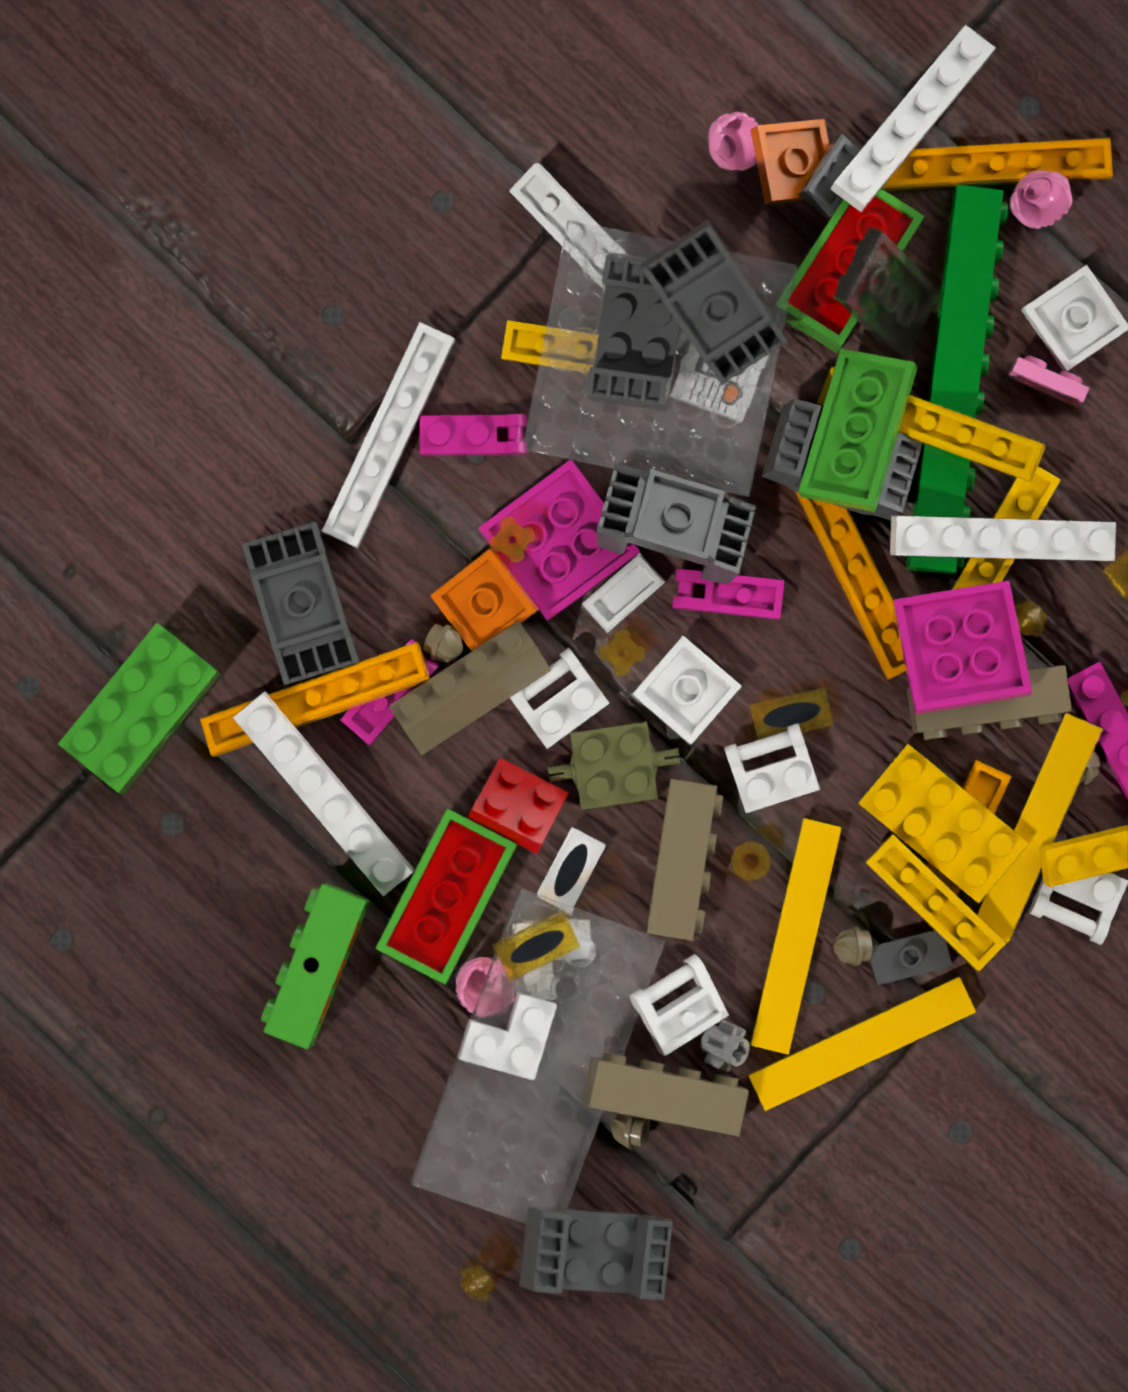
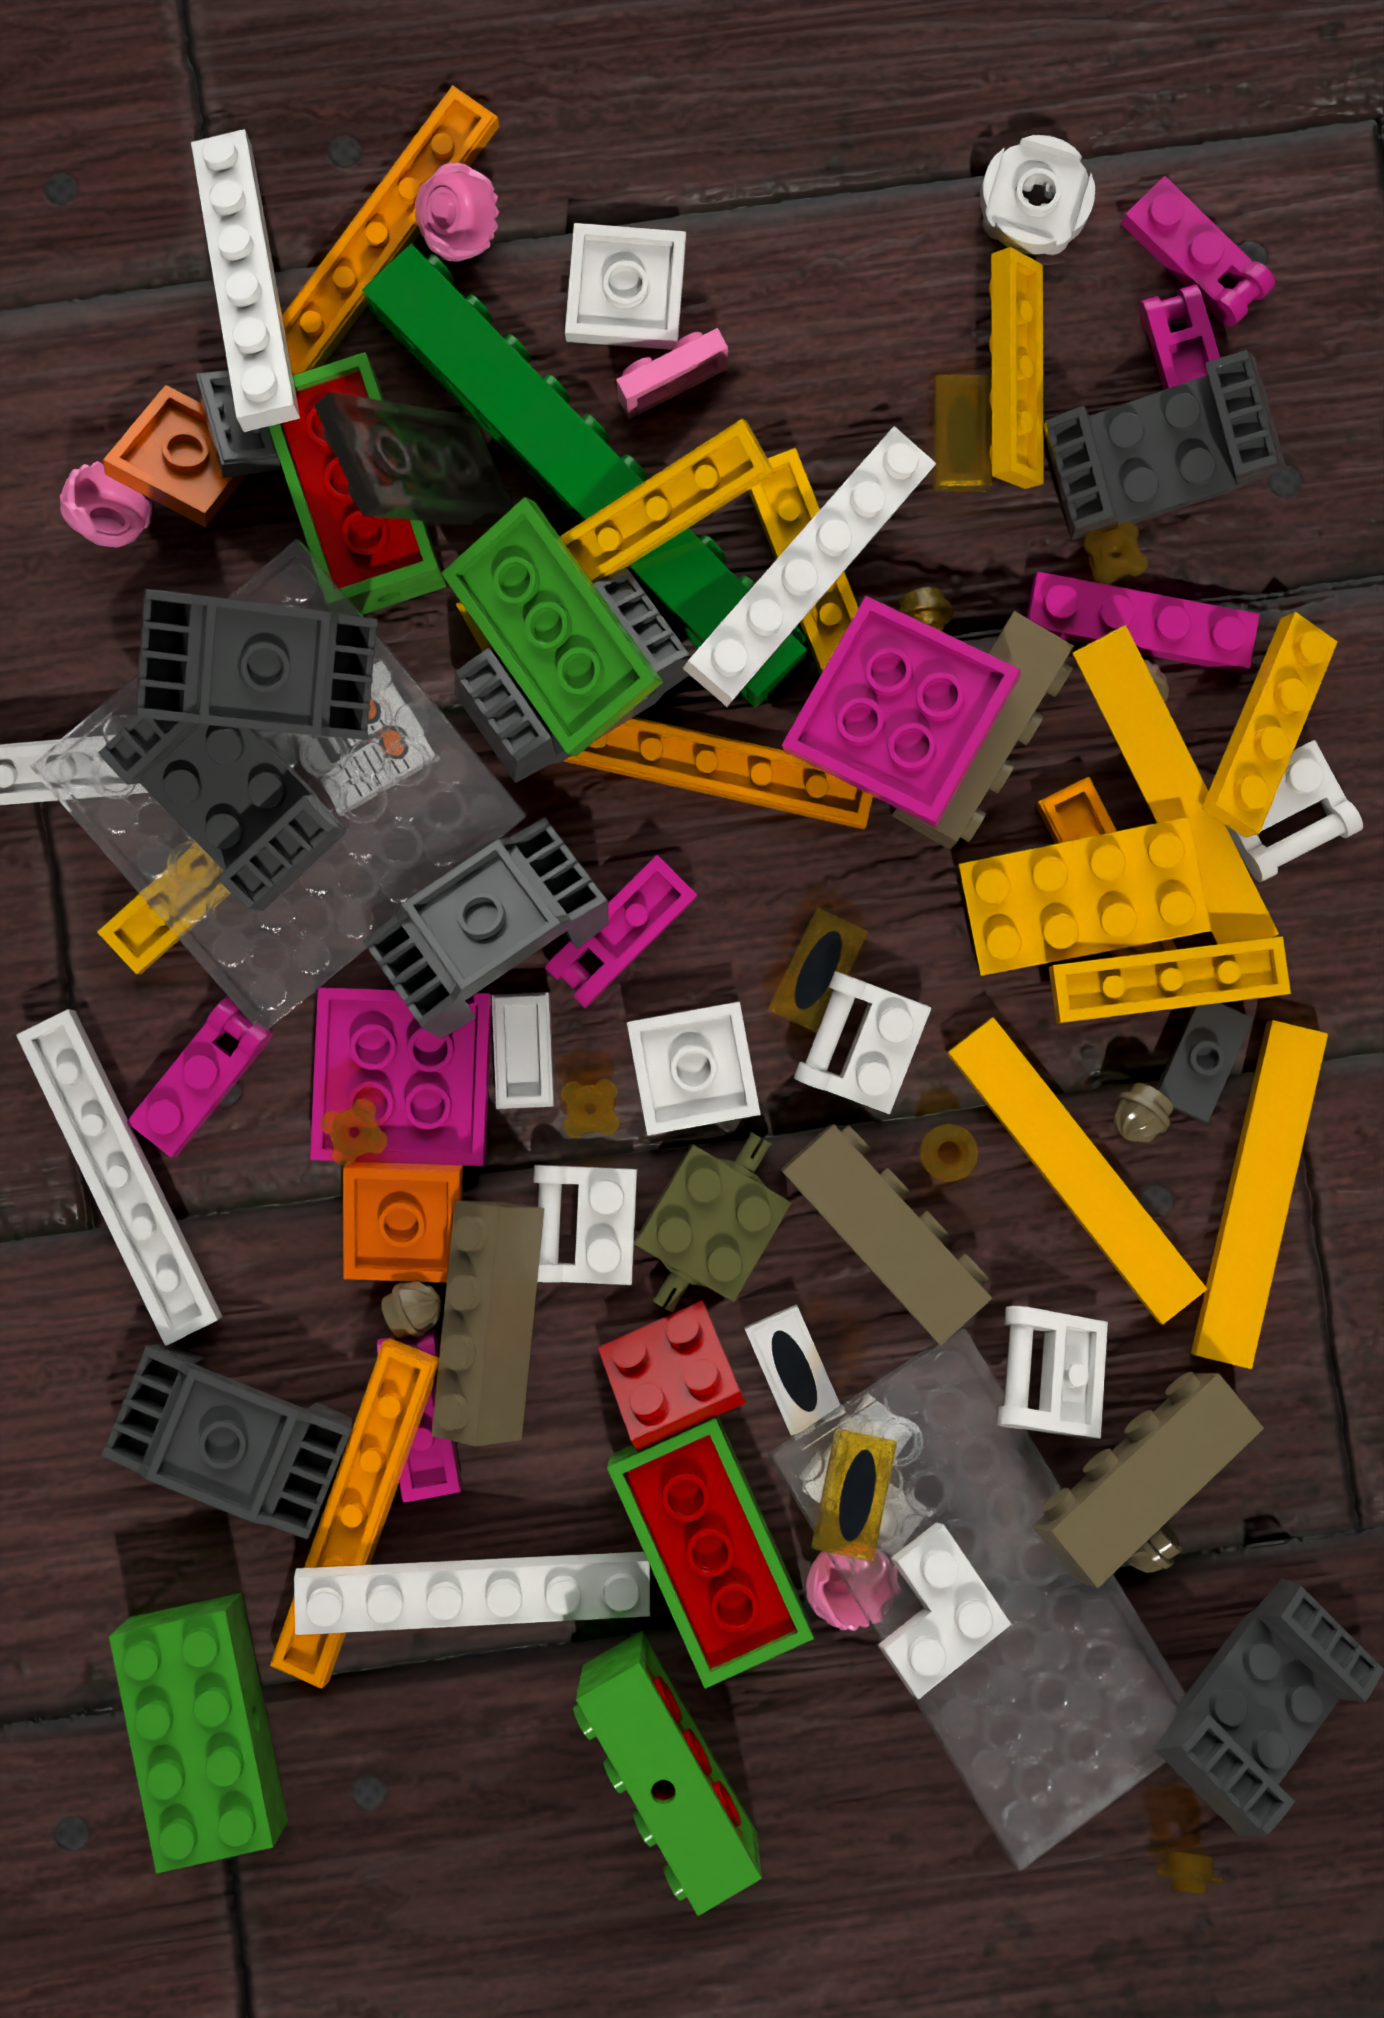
camera: 50 degrees left, 0 degrees up
(725, 1046) = (1141, 1356): light grey gear -> none

